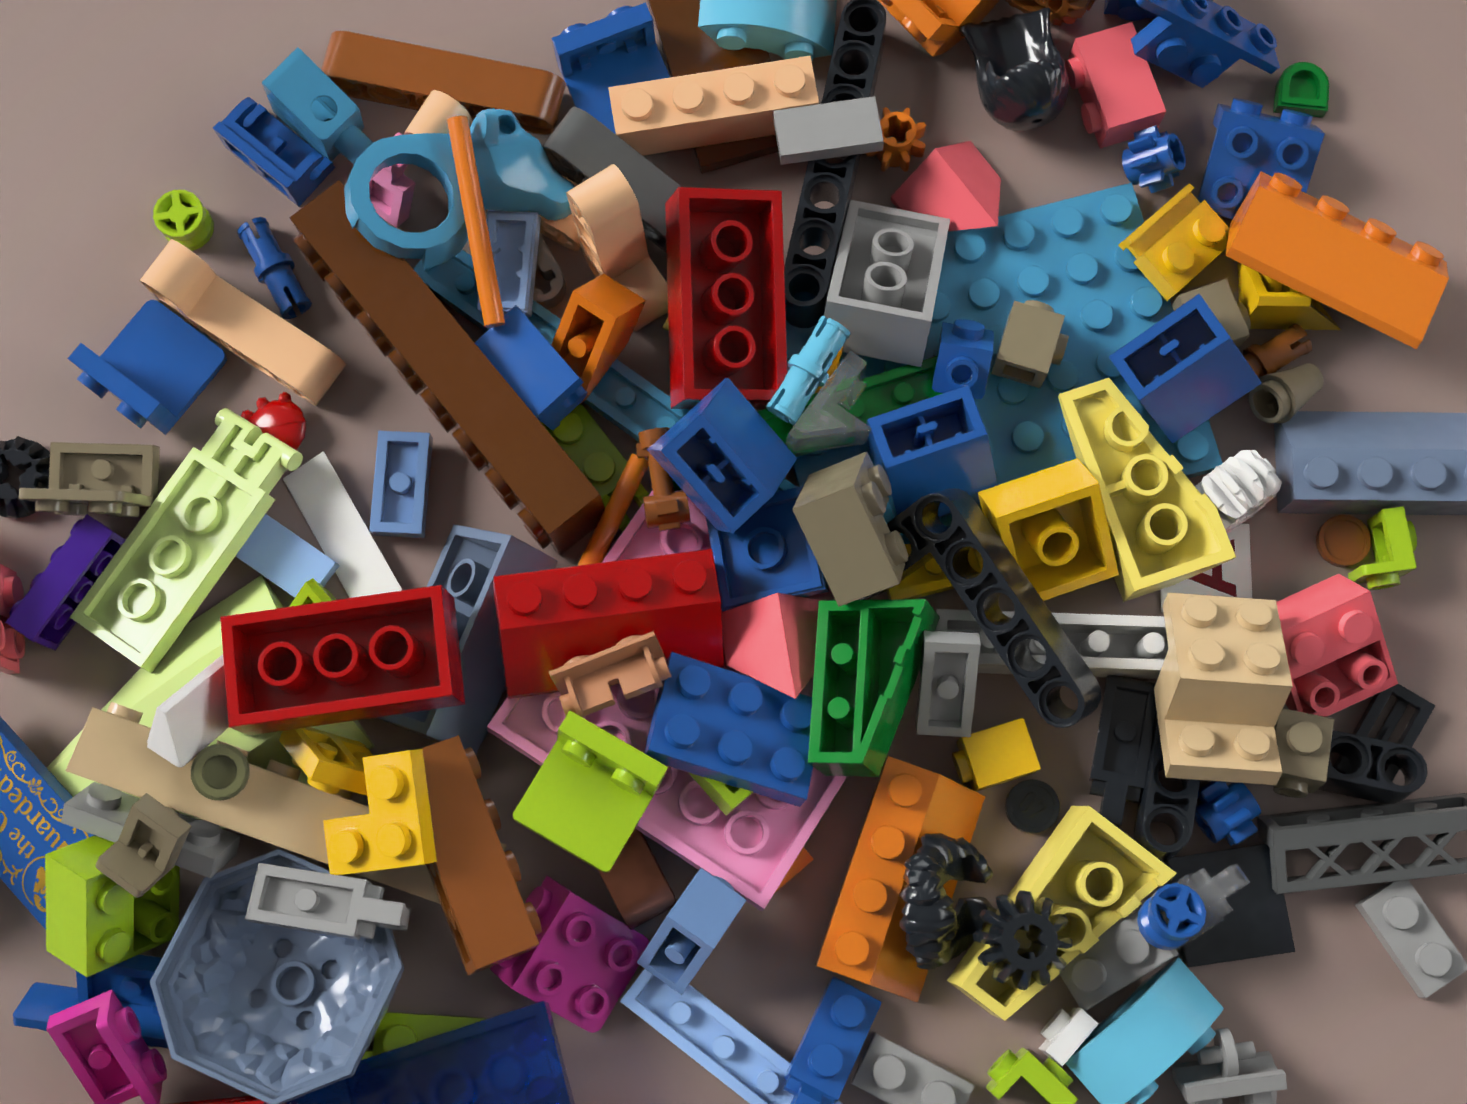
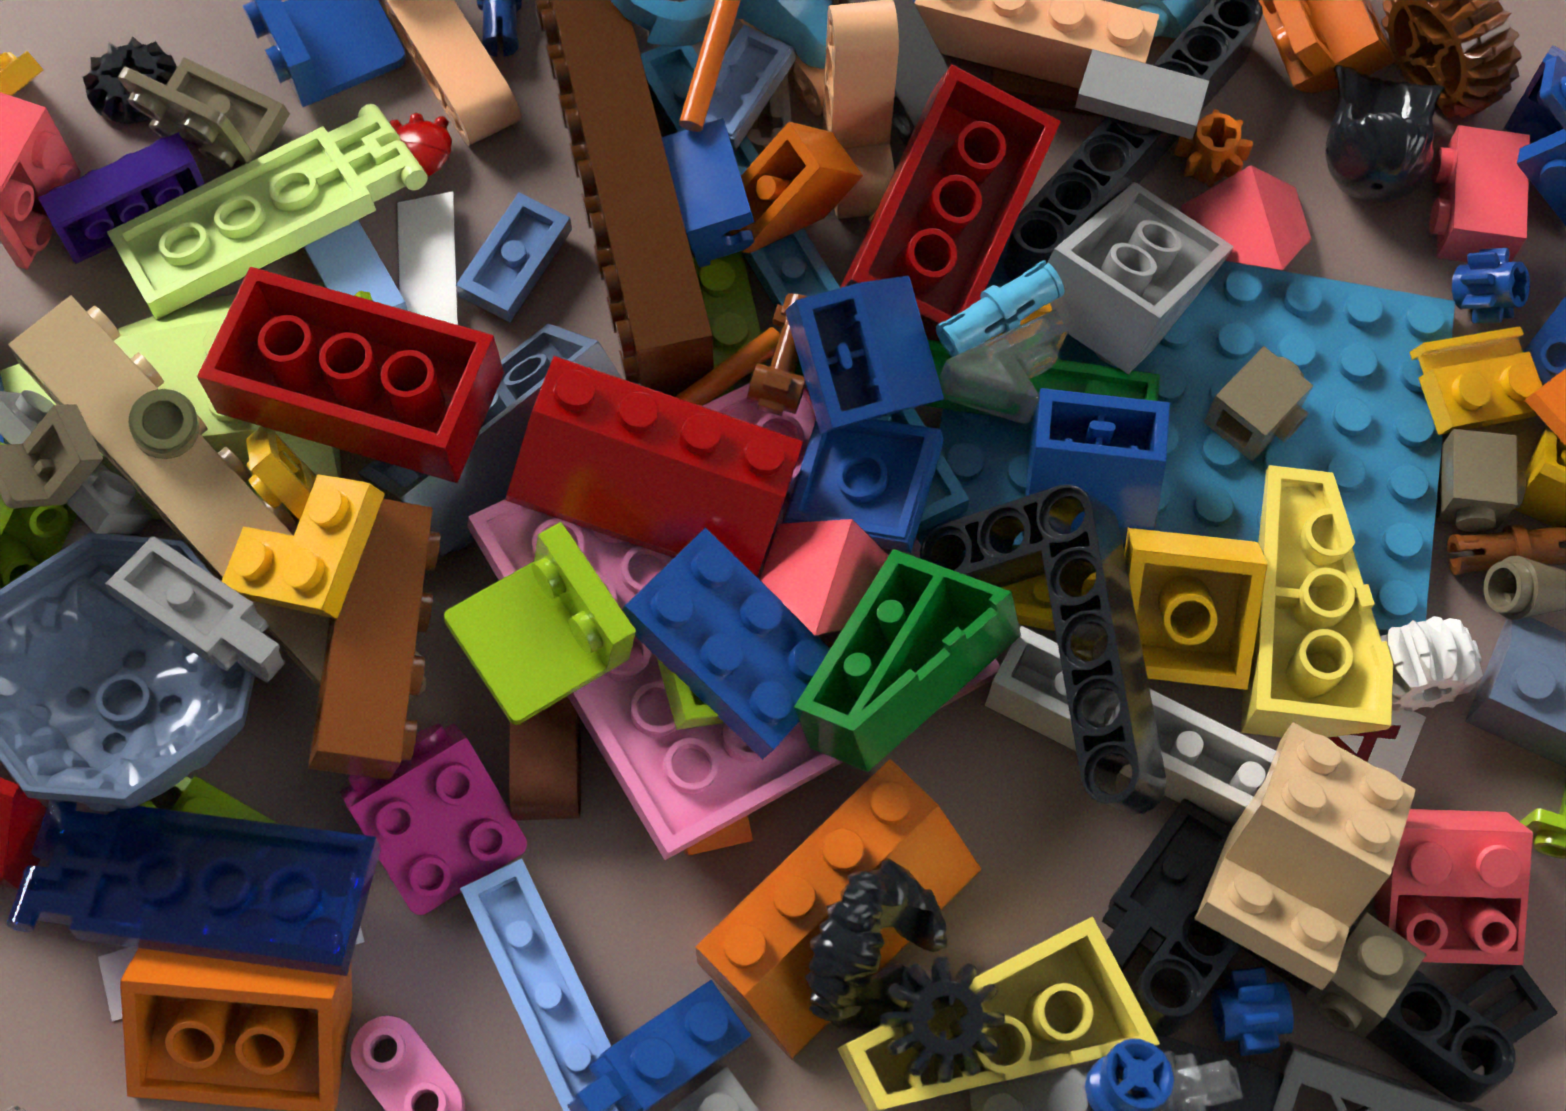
camera: 20 degrees right, 10 degrees down
(191, 717) = (162, 352): white slope -> none
(586, 680) = (650, 512): nougat hinge -> none
(691, 930) = (575, 839): medium blue brick -> none
(847, 531) = (961, 487): dark tan brick -> none
(947, 683) = (994, 707): light grey plate -> none
(963, 357) = (1184, 379): blue bracket -> none
(995, 755) = (1014, 825): yellow brick -> none
(1032, 806) = (1030, 906): black piece -> none
(1185, 369) = (1425, 499): blue slope -> none
(1343, 540) = (1528, 783): dark orange piece -> none

